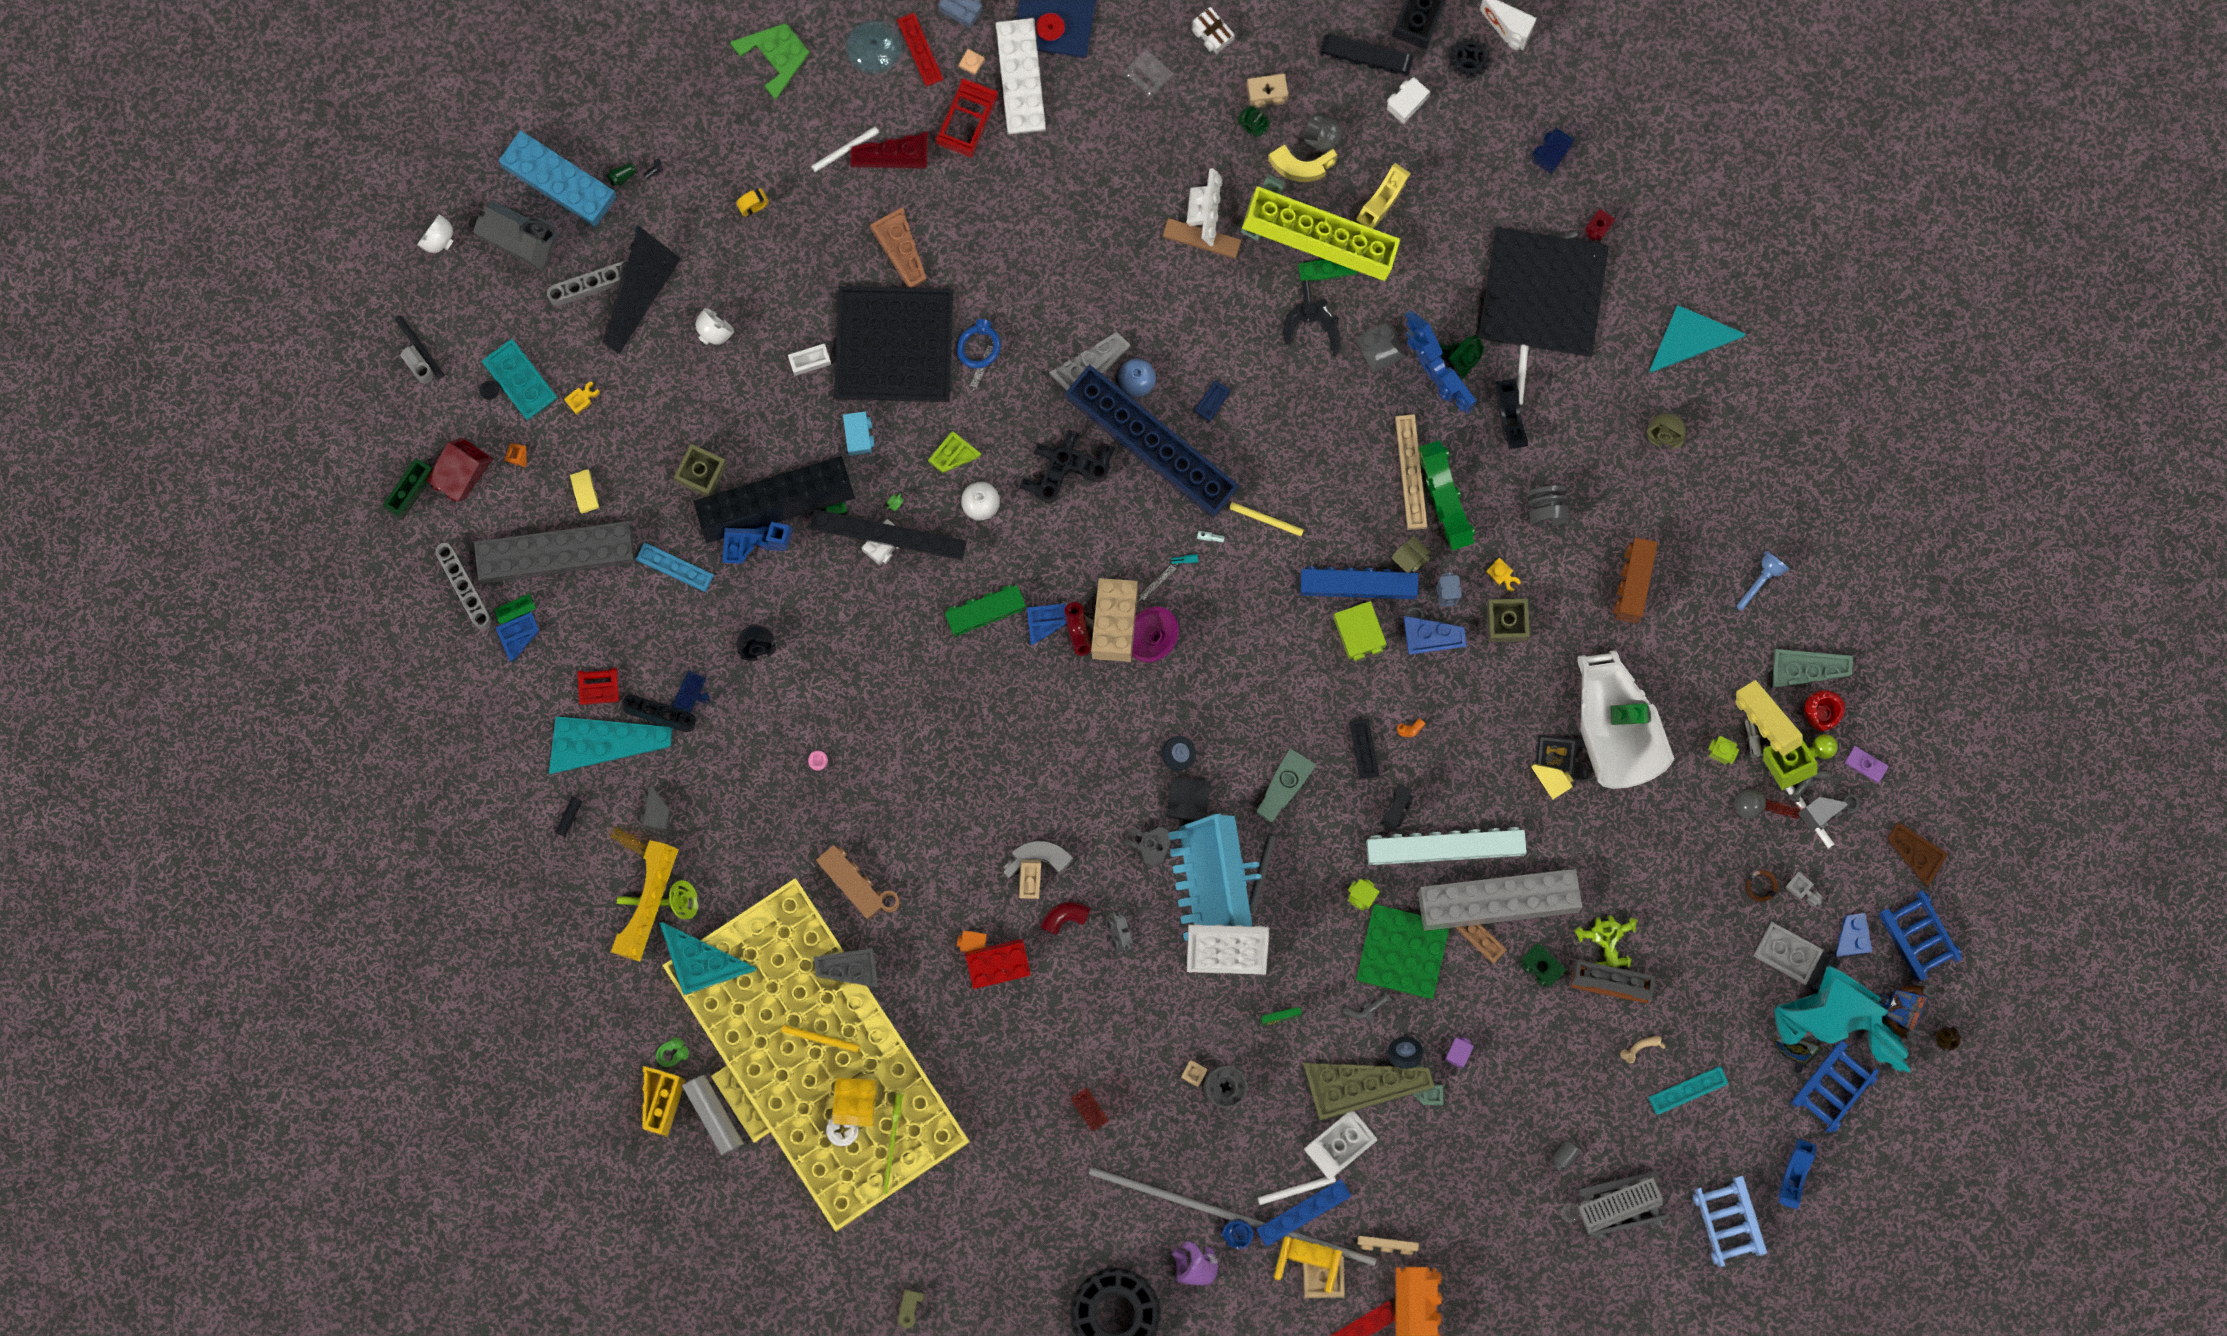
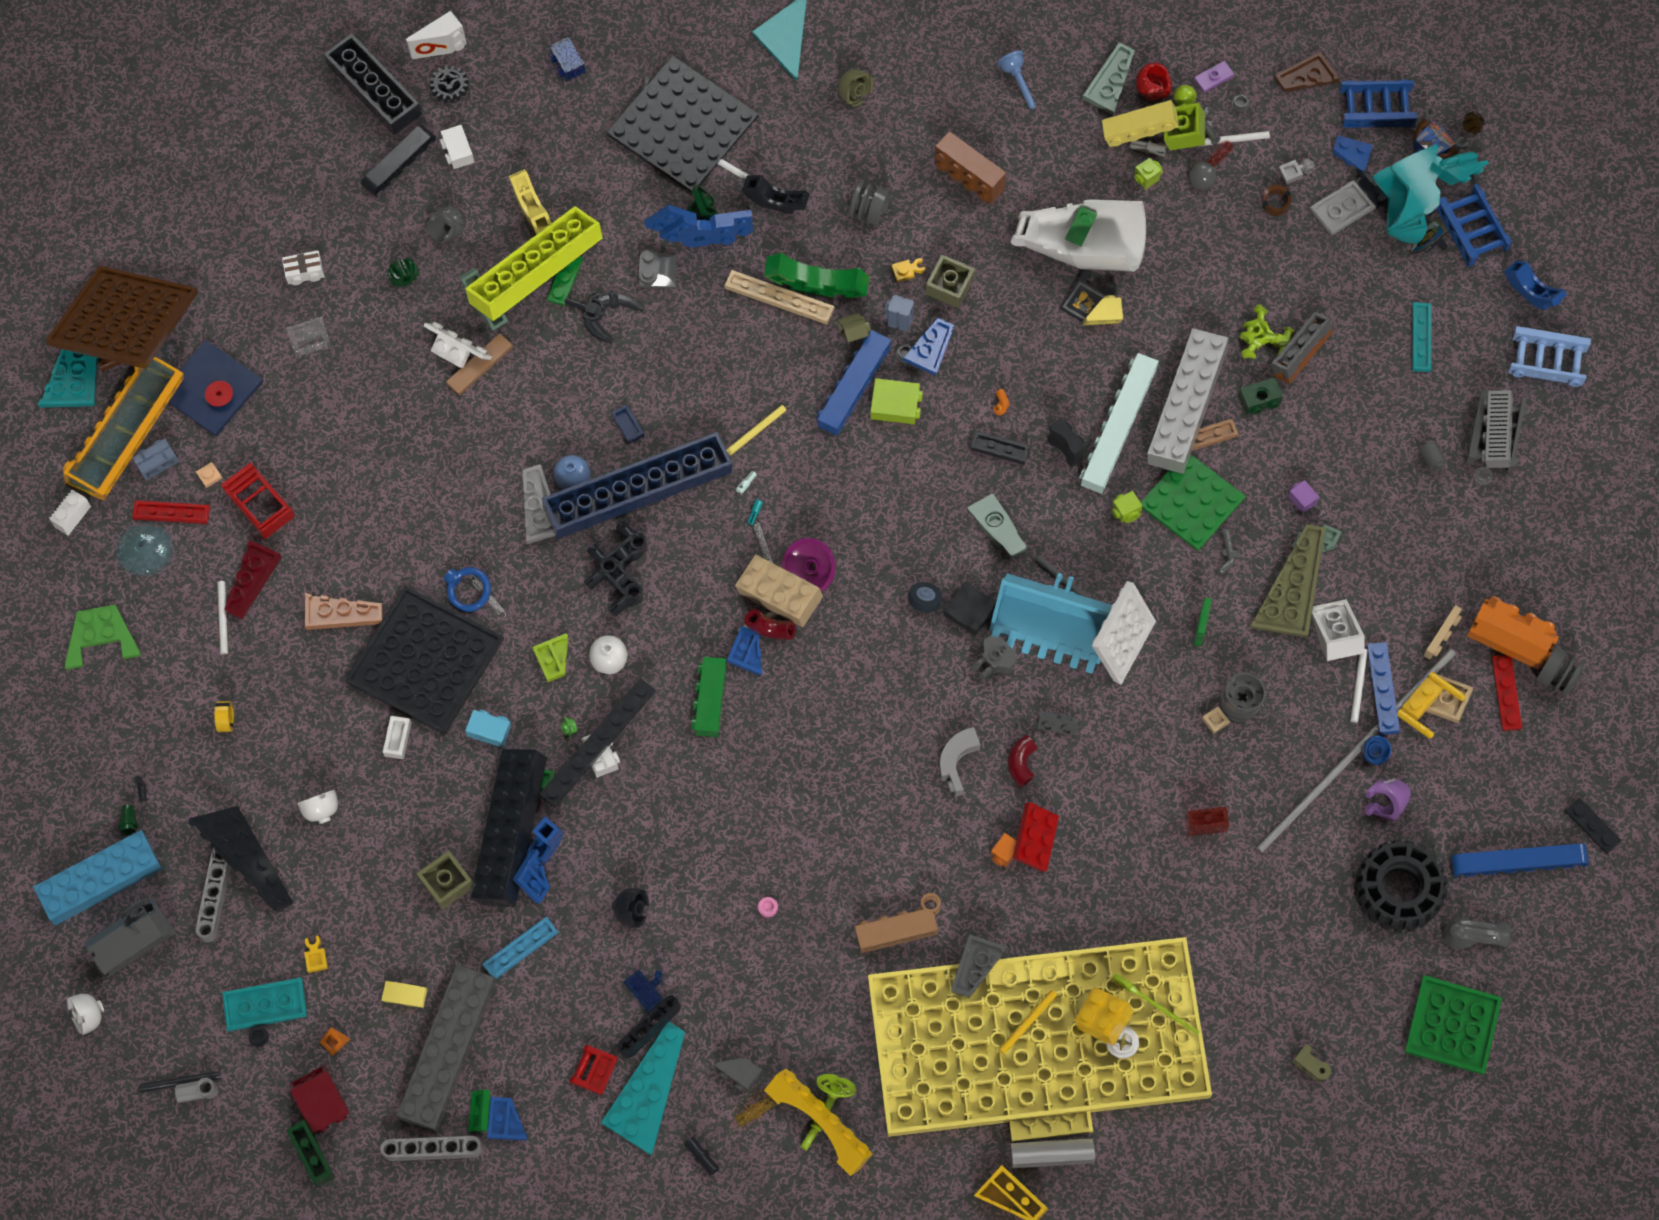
camera: 60 degrees left, 10 degrees down
(682, 1052) = (978, 1160): bright green piece -> none
(699, 963) = (903, 1098): teal tile -> none
(1020, 76) = (247, 439): white plate -> none
(1029, 878) = (973, 773): tan plate -> none
(1275, 84) = (376, 255): tan brick -> none
(1299, 170) = (456, 265): light yellow arch -> none
(1405, 1052) = (1282, 538): black wheel -> none
(1599, 225) = (651, 55): dark red brick -> none
(1650, 1041) = (1370, 366): tan piece -> none
(1820, 811) = (1238, 126): slope -> none

